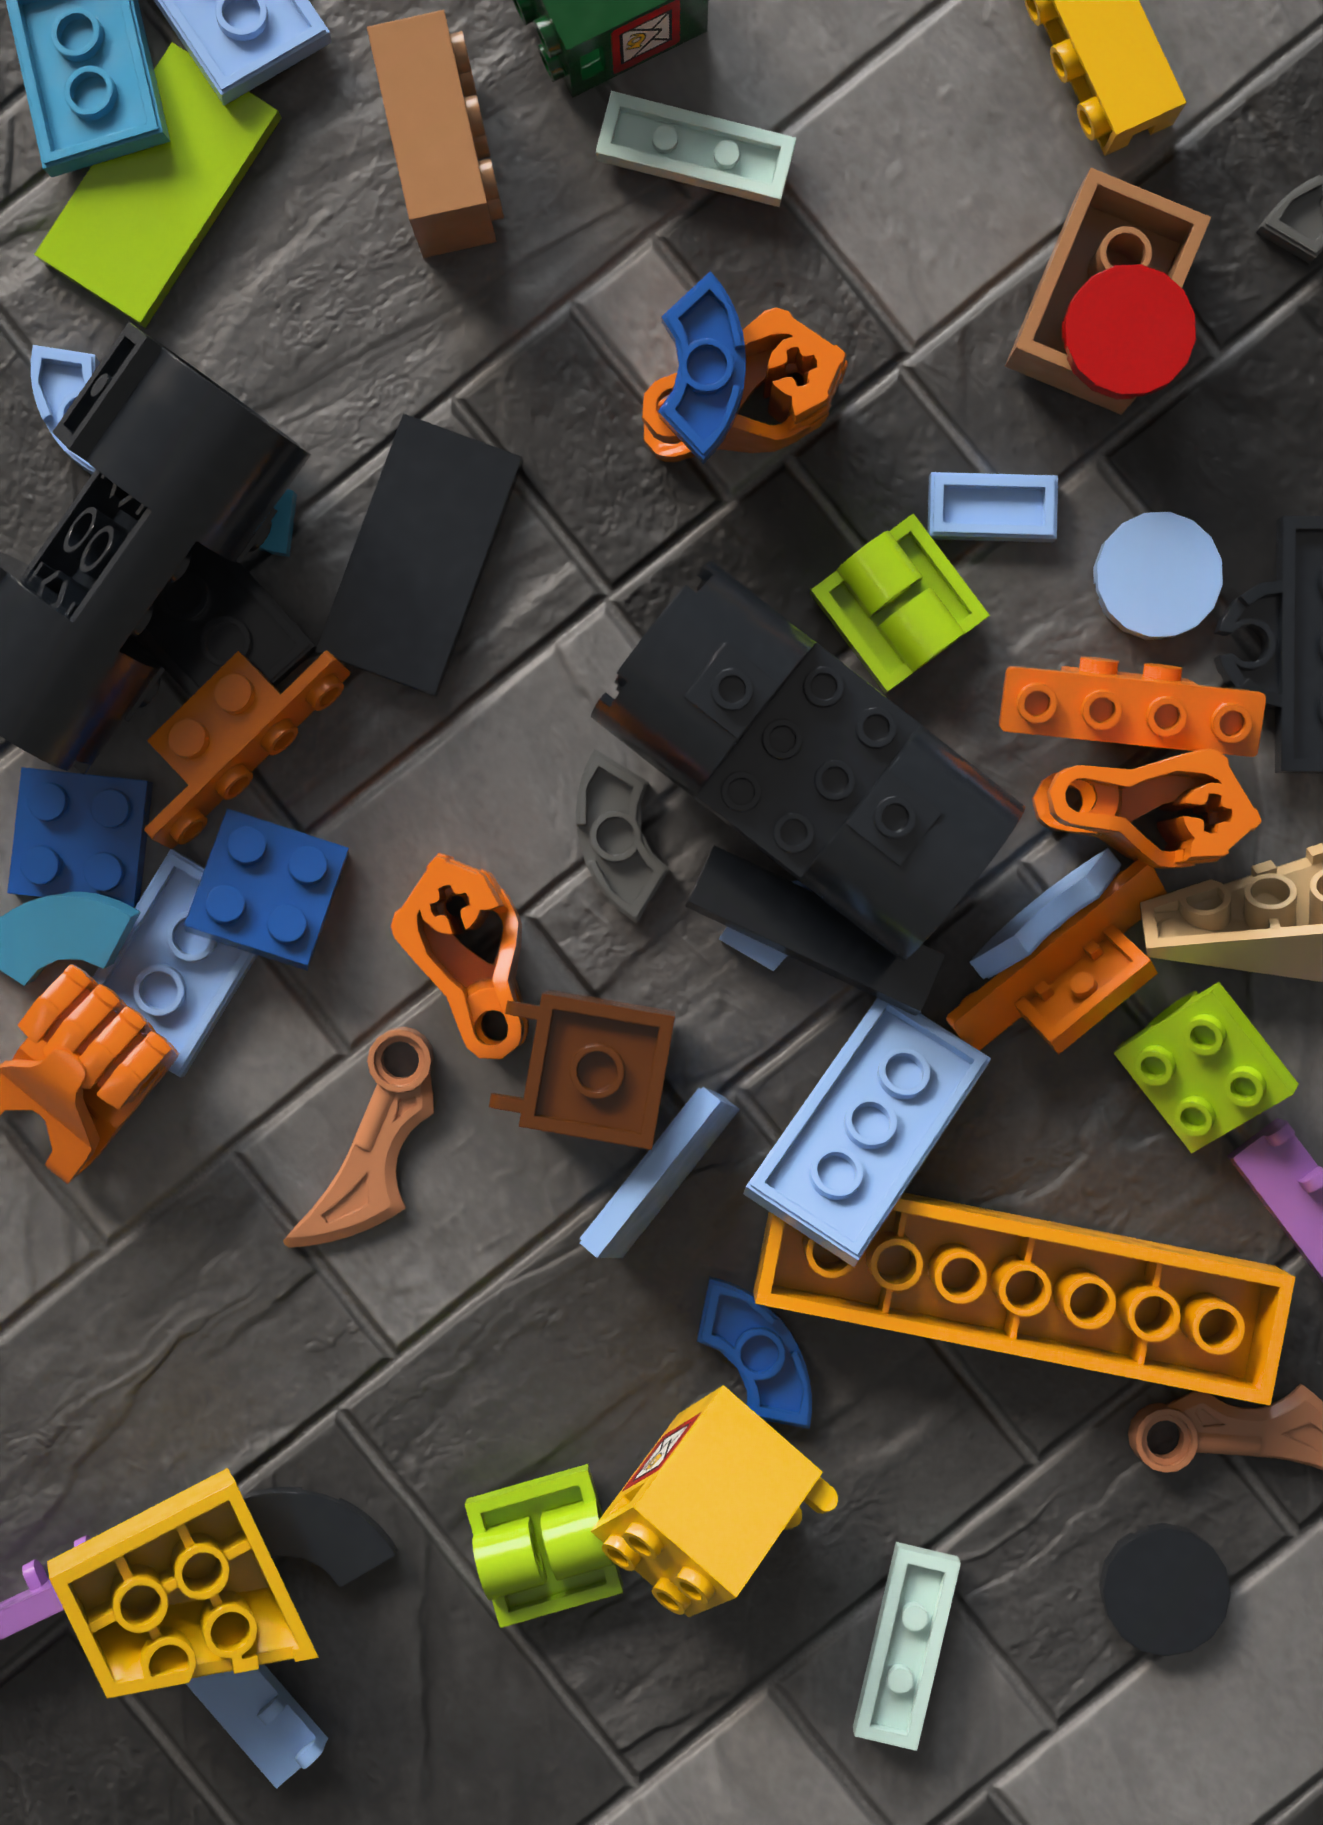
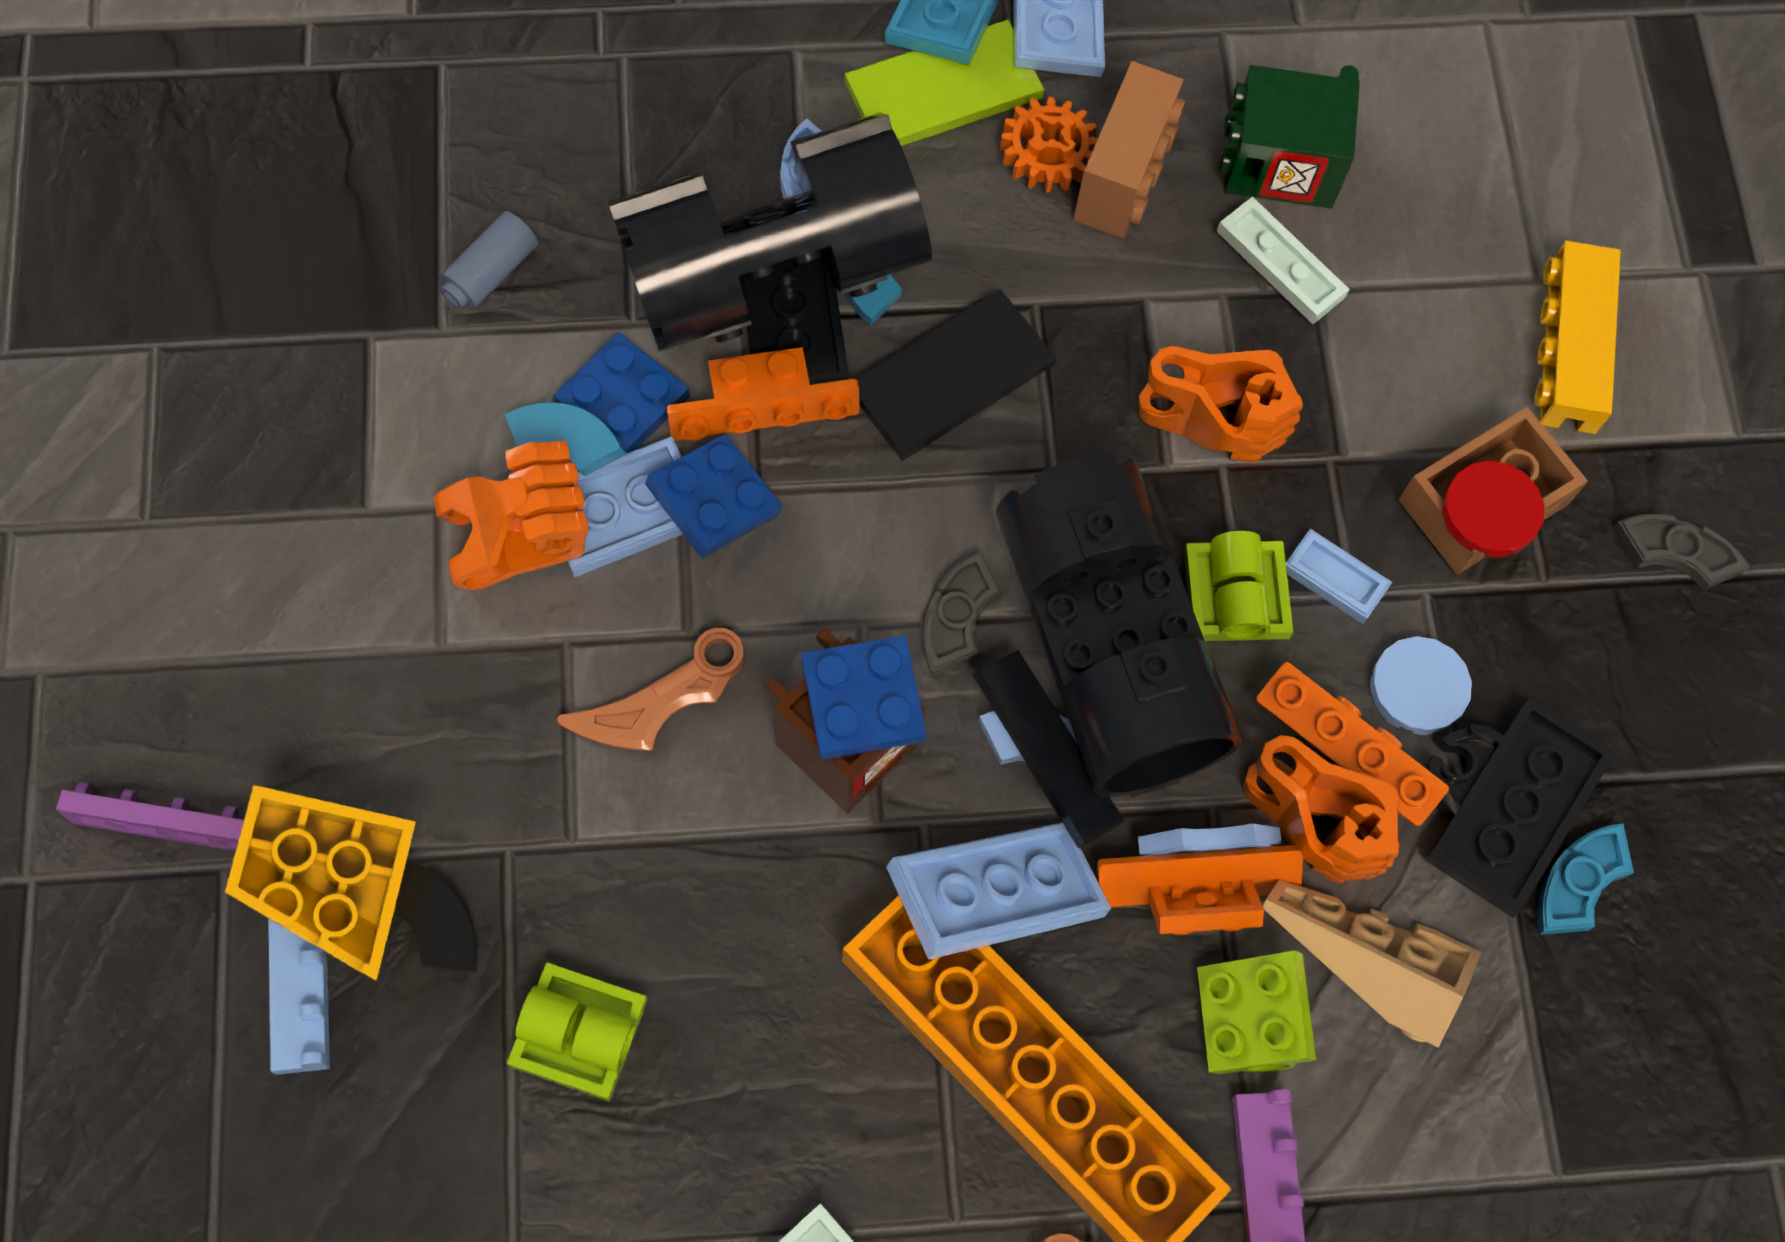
camera: 30 degrees right, 20 degrees down
(333, 156) = (1048, 143): none -> orange gear
(465, 978) = (801, 569): orange piece -> none
(605, 1055) = (863, 697): none -> blue plate
(659, 1174) = (838, 826): light blue tile -> none
(709, 369) = (1210, 357): blue tile -> none
(710, 1504) = (716, 1060): yellow container -> none
(760, 1350) = (819, 1006): blue tile -> none

